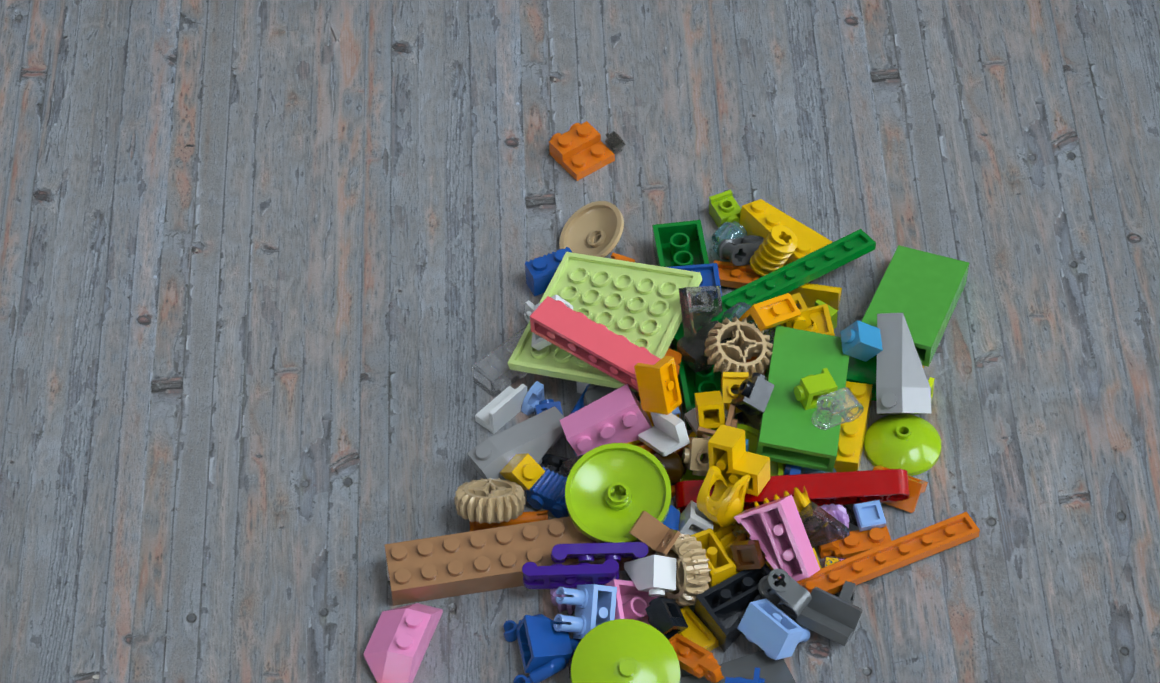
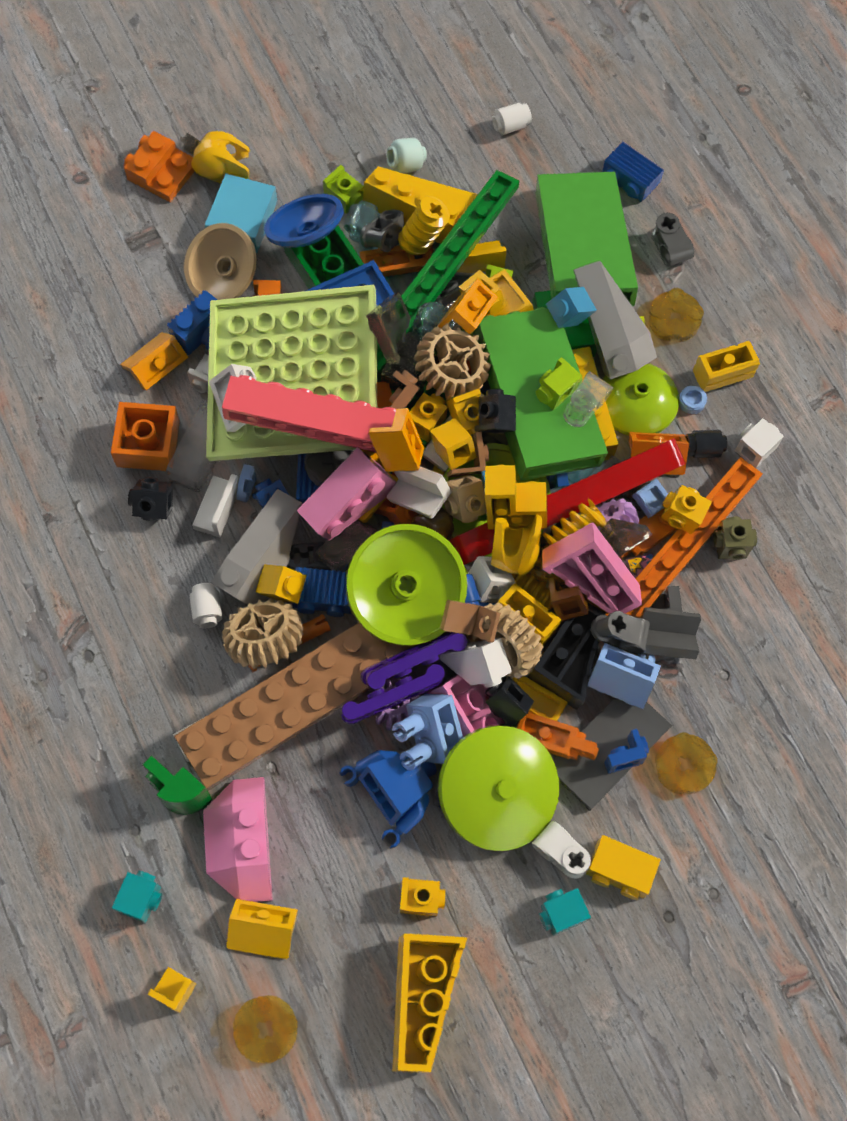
camera: 30 degrees left, 20 degrees up
(302, 651) = (138, 896): none -> teal brick
(370, 585) = (177, 792): none -> green brick
(451, 384) = (151, 499): none -> black brick
(456, 472) = (205, 605): none -> white brick
(467, 337) = (145, 436): none -> orange brick
(505, 290) = (155, 360): none -> light orange panel
(627, 161) = (213, 160): none -> yellow helmet
(636, 199) = (244, 205): none -> medium azure brick
(671, 217) = (304, 221): none -> blue dish
(689, 360) = (400, 397): none -> medium nougat bracket
(699, 382) = (427, 421): none -> yellow brick
(793, 200) = (406, 155): none -> light aqua head
(890, 527) = (685, 509): none -> yellow brick
(902, 199) = (511, 118): none -> white brick
(926, 569) = (734, 538): none -> olive brick
(941, 493) = (706, 443): none -> black brick
(950, 459) = (692, 399): none -> light blue tile
(972, 380) = (681, 303): none -> clear yellow plate
(989, 270) = (633, 171): none -> blue brick
(989, 439) = (726, 366): none -> yellow brick
(990, 507) = (758, 442): none -> white brick
(995, 331) = (672, 240): none -> dark grey piece

